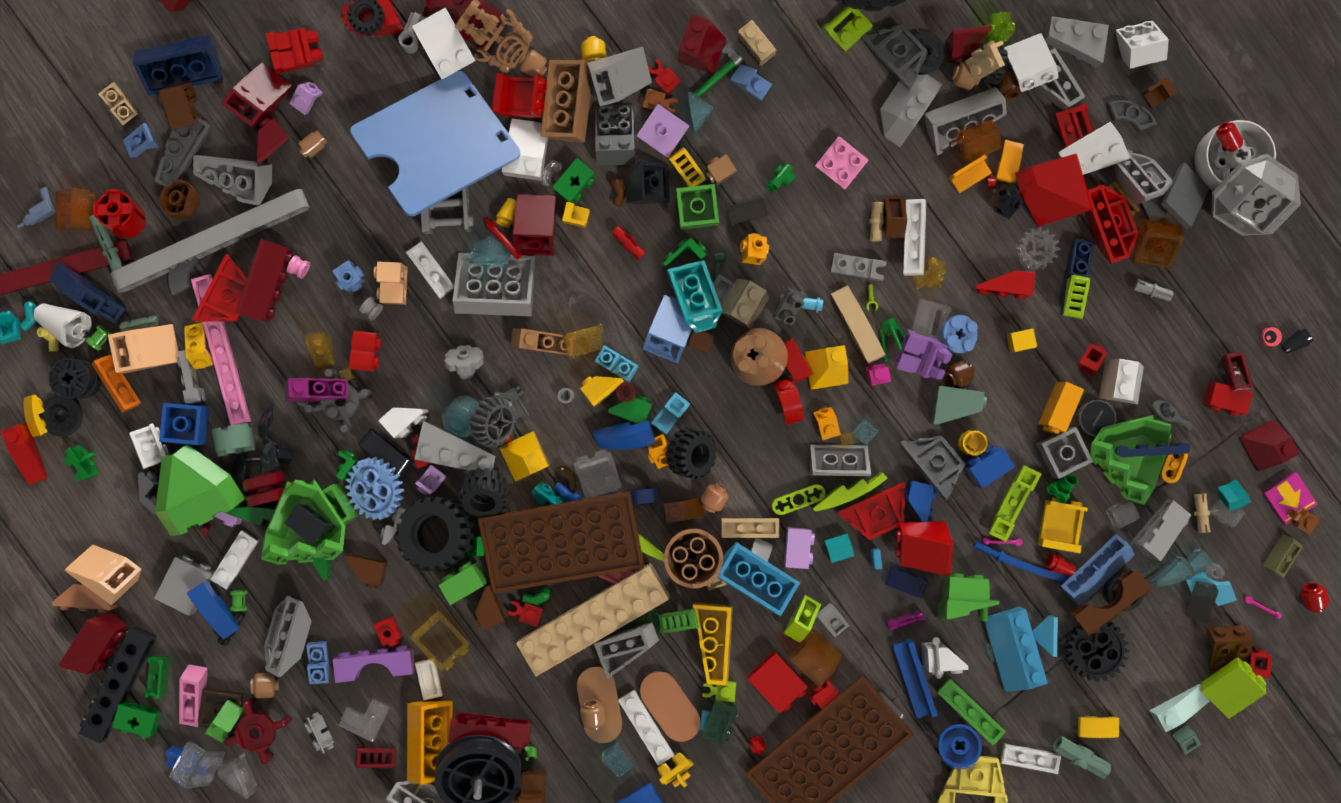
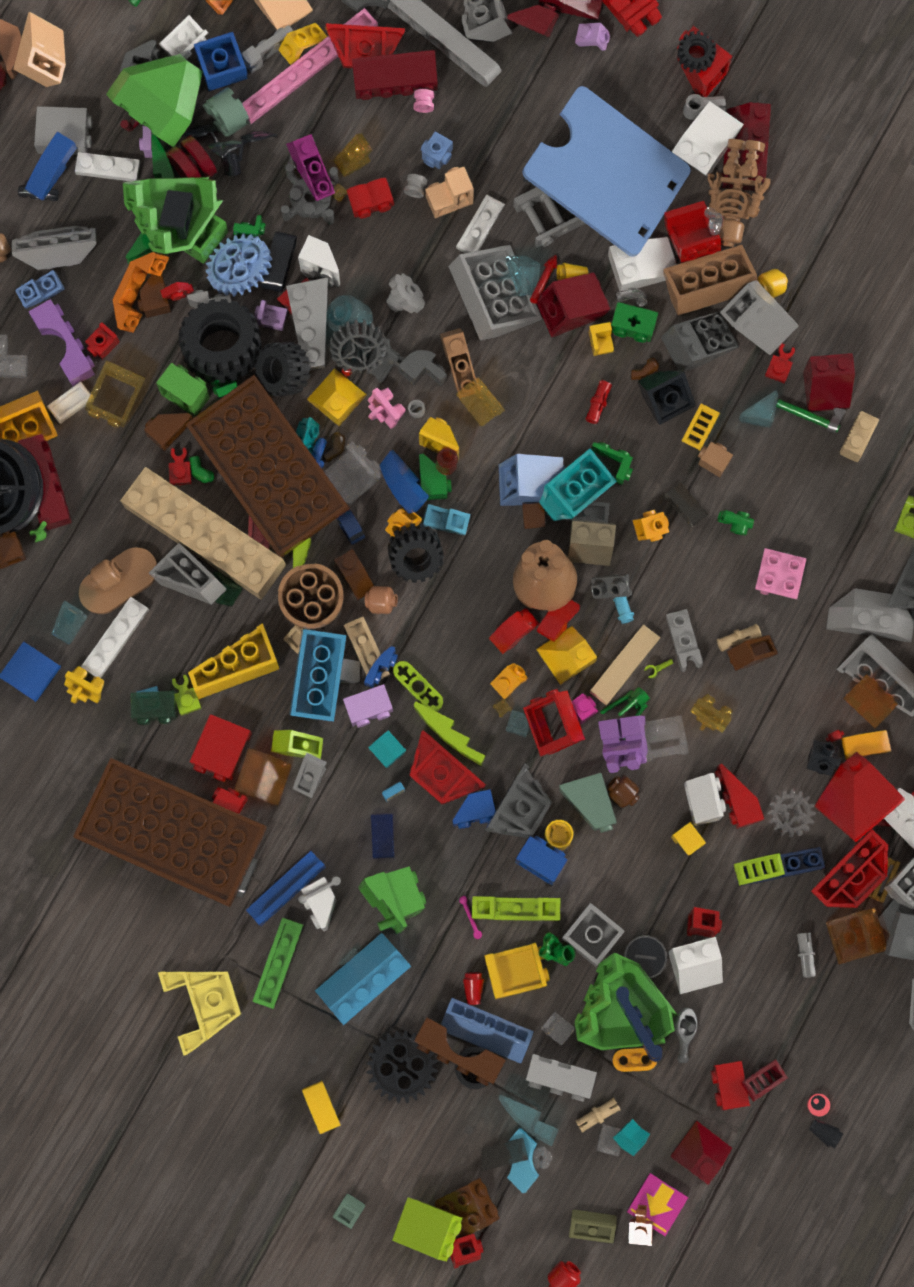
camera: 65 degrees right, 10 degrees down
(238, 600) = (69, 187): bright green bush -> none
(312, 144) = (549, 61): medium nougat brick -> none
(373, 601) = (126, 316): none -> orange slope
(375, 550) = (177, 291): none -> red plate
(518, 71) = (715, 221): none -> clear arm
(528, 375) = (418, 364): none -> dark grey brick
(553, 424) = (383, 409): none -> bright pink hips
(616, 363) = (471, 445): medium azure slope -> none
(654, 97) = (753, 367): dark orange plate -> none
(663, 130) = (726, 385): lavender plate -> none
(670, 706) = (147, 652): nougat tile -> none
(677, 620) = (238, 616): bright green slope -> none
(697, 206) = (666, 451): bright green brick -> none
(719, 257) = (626, 497): clear green hand -> none
(749, 81) = (818, 451): medium blue slope -> none
(757, 745) = (145, 757): red plate -> none
(769, 519) = (385, 660): none -> blue slope
(839, 460) = (477, 709): light grey slope -> none
(882, 417) = (539, 726): none -> red window
(905, 620) = (342, 852): magenta axle -> none
(915, 237) = (741, 681): white plate -> none
(925, 546) = (428, 831): red slope -> none
(967, 738) = (235, 963): blue wheel -> none
(969, 334) = (675, 778): medium blue plate -> none
(970, 174) = (833, 710): light orange panel -> none
(998, 313) = (704, 799): none -> white slope
(1001, 556) = (455, 944): blue sword -> none
(1030, 758) = (255, 1051): white tile -> none
(1046, 634) = (392, 1006): medium azure slope -> none
(1060, 407) = (637, 908): light orange brick -> none
(1082, 757) = (281, 1102): sand green piece -> none
(1179, 709) = (379, 1185): light aqua slope -> none
(1249, 600) = (528, 1210): dark pink hinge -> none

